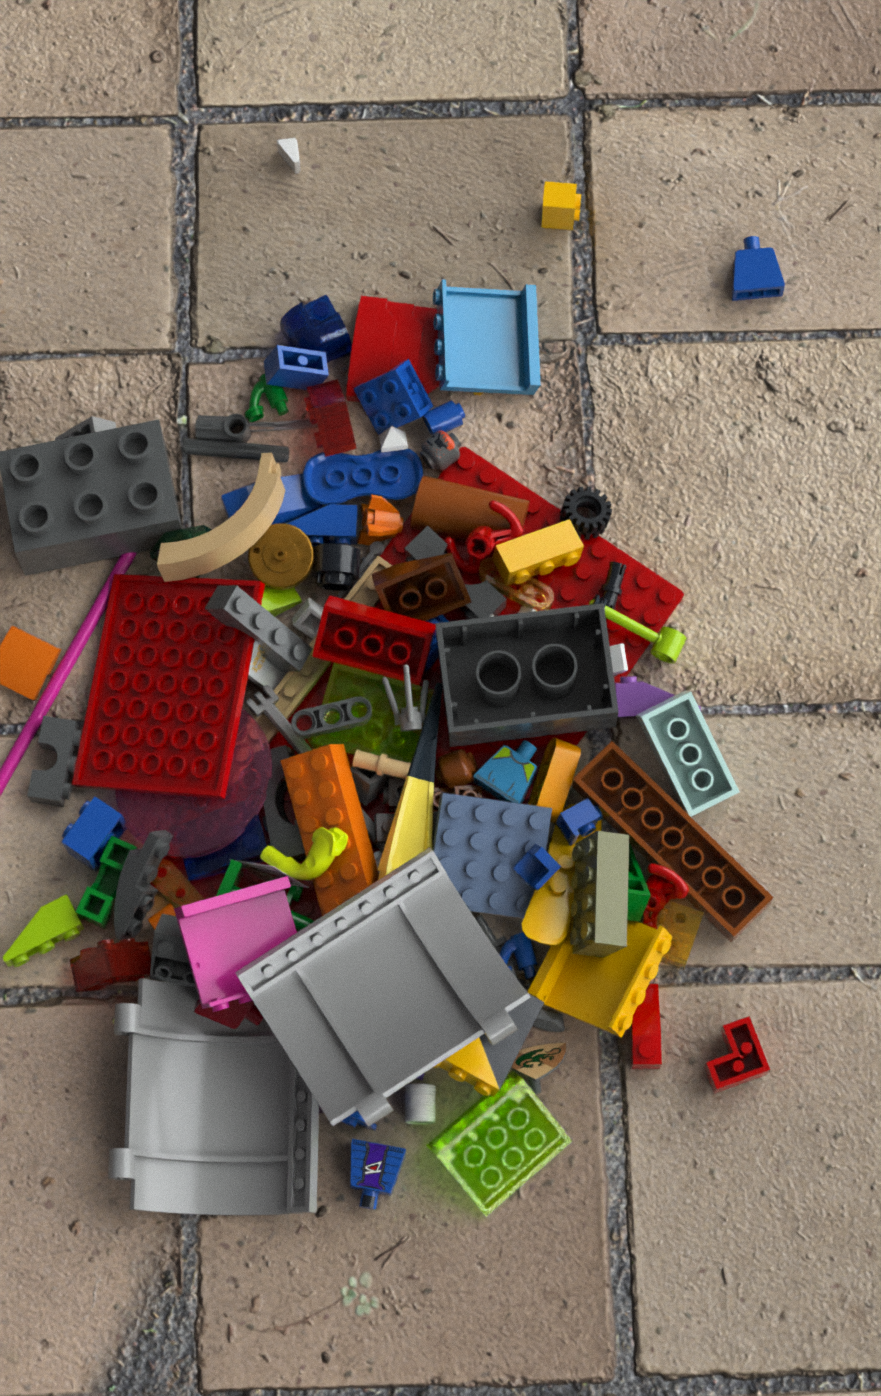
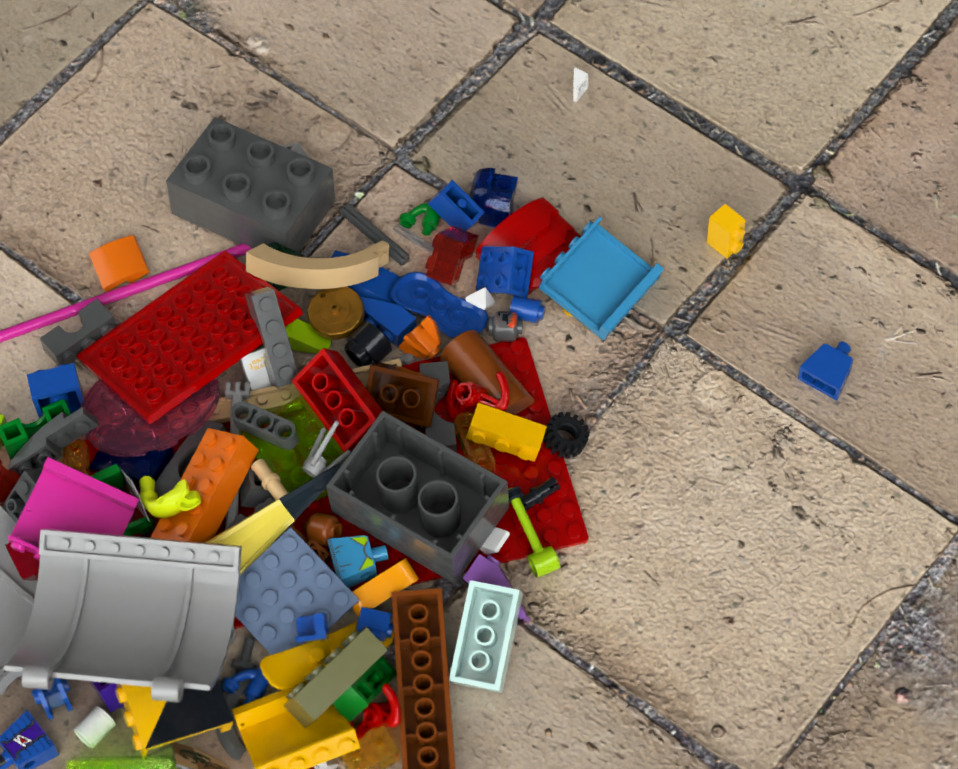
camera: 40 degrees right, 15 degrees down
(220, 428) = (381, 216): dark grey piece -> none

